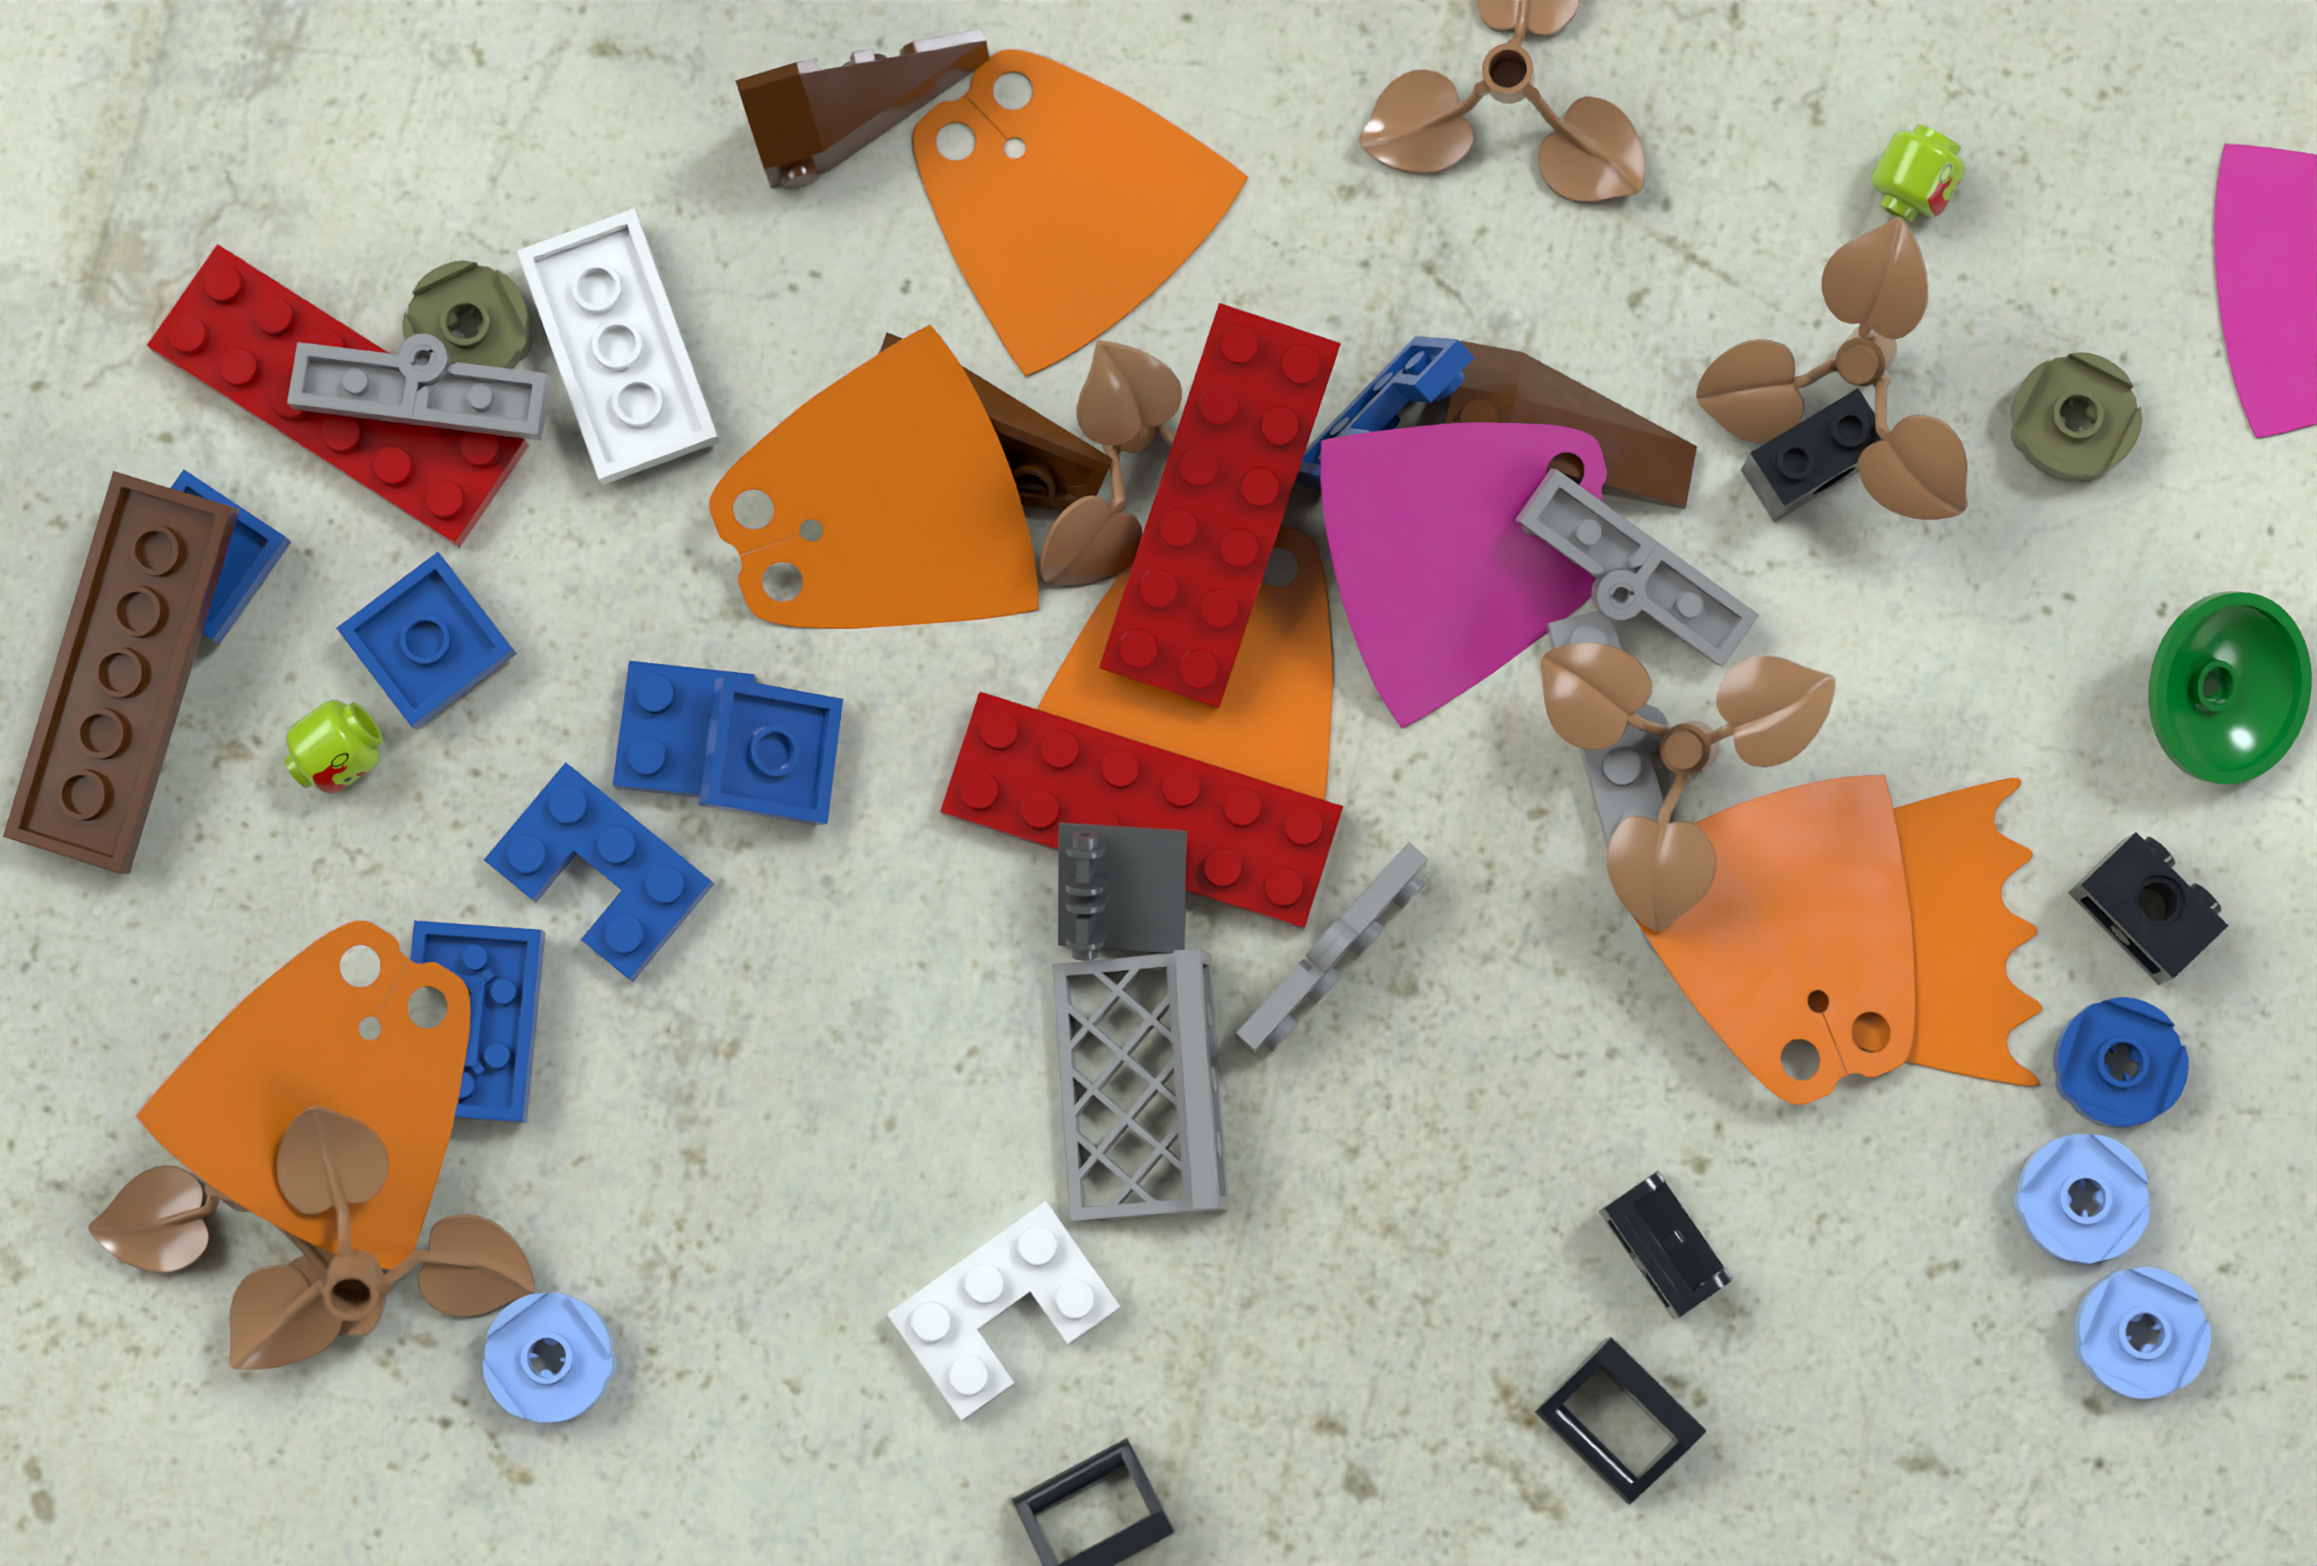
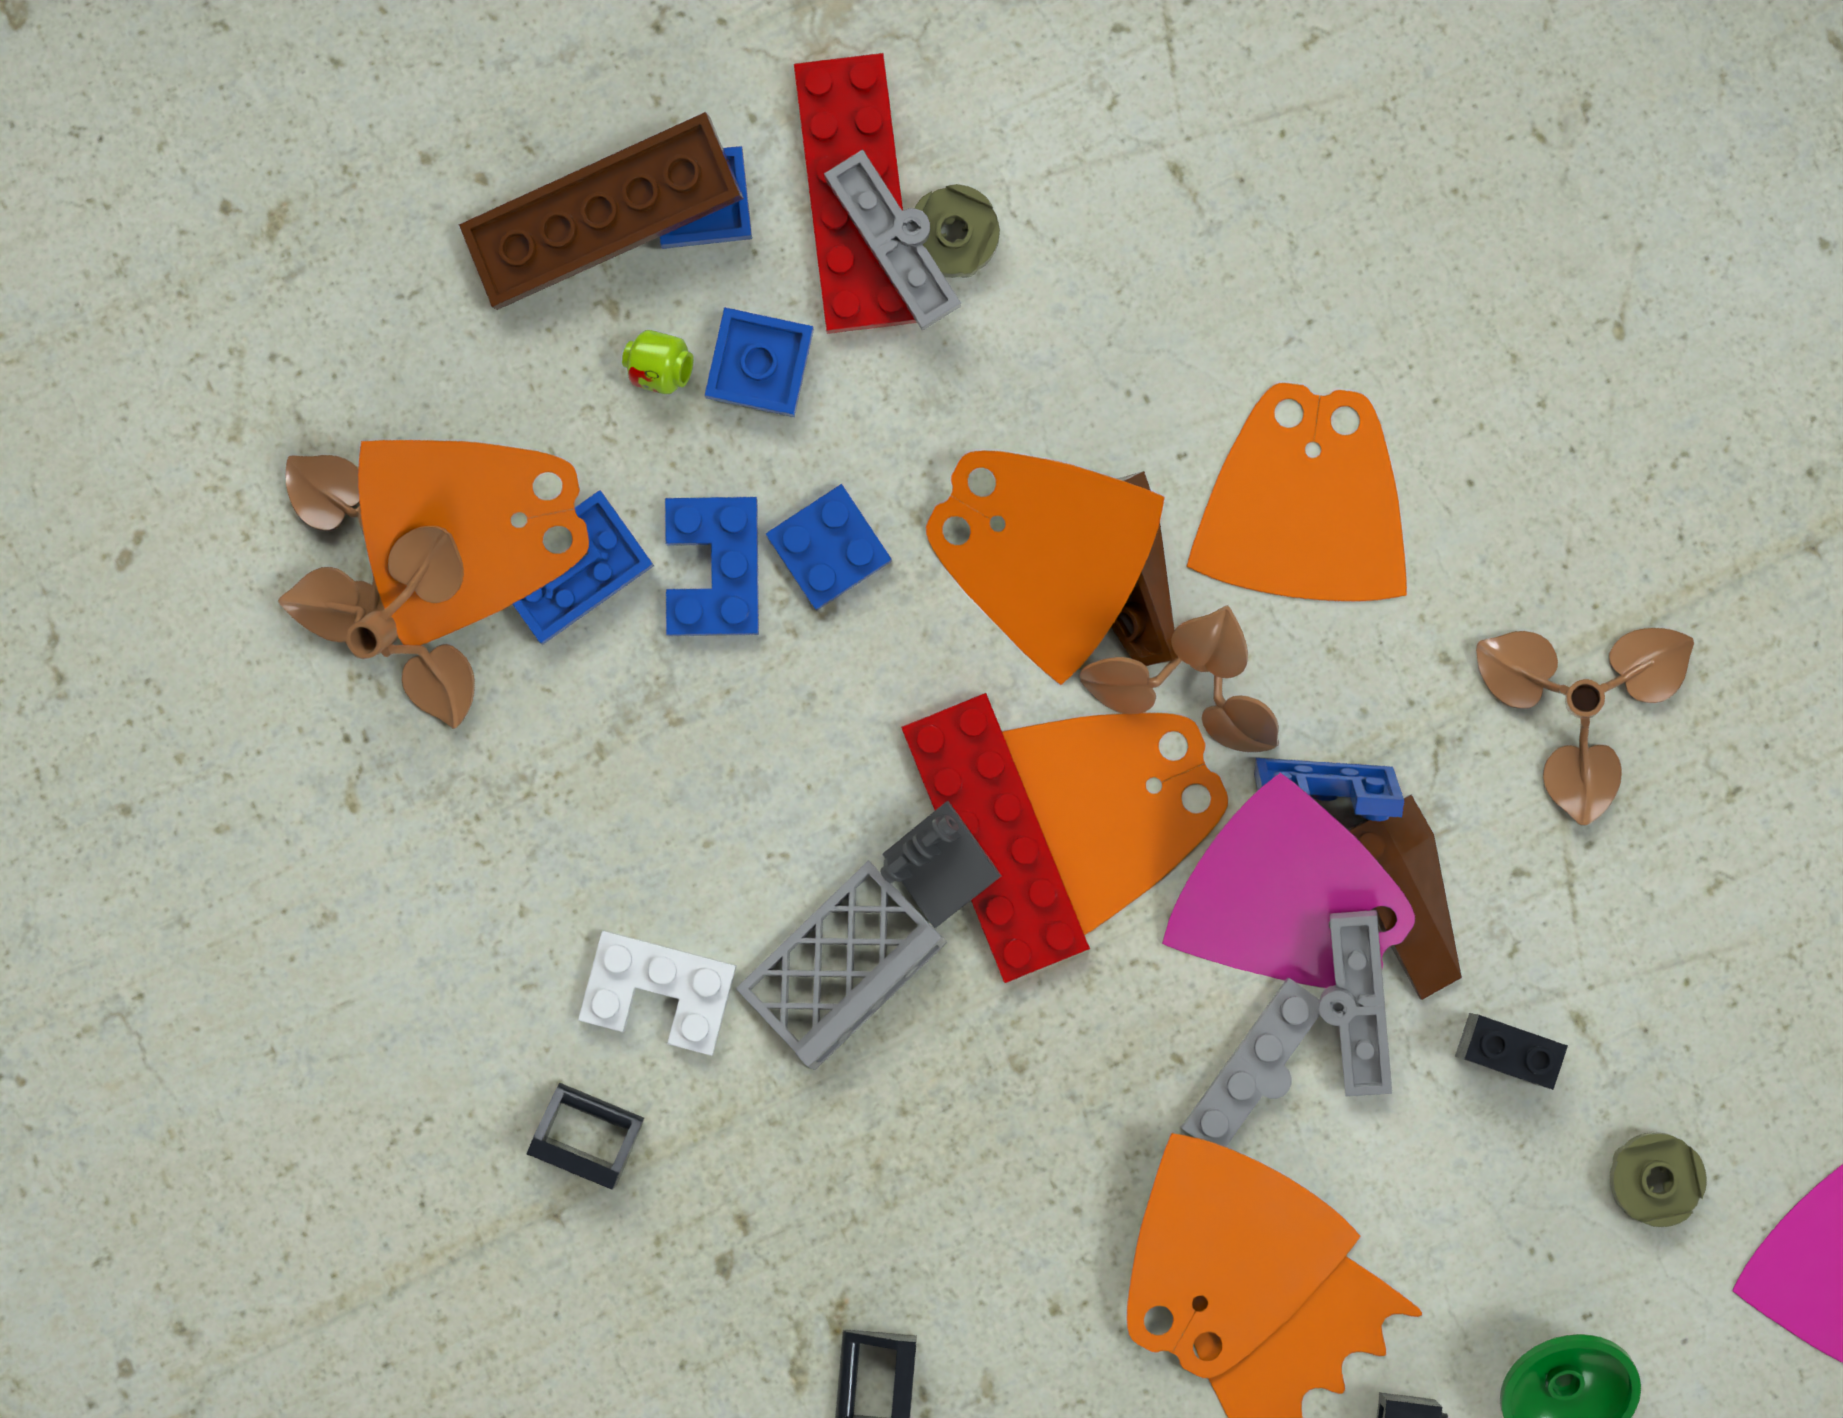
camera: 45 degrees right, 5 degrees up
(544, 1395) = (405, 782): light blue plate -> none
(618, 346) = (1012, 325): white plate -> none
(771, 751) = (855, 606): blue plate -> none
(819, 118) = (1232, 327): reddish brown wedge -> none
(1219, 505) = (1201, 740): red plate -> none
(1352, 931) = (1024, 1013): light grey hinge -> none
(1666, 1245) = (994, 1329): black hinge -> none
(1769, 709) = (1336, 1150): medium nougat plant -> none
(1885, 289) = (1628, 1021): medium nougat plant -> none
(1918, 173) = (1725, 975): lime head -> none

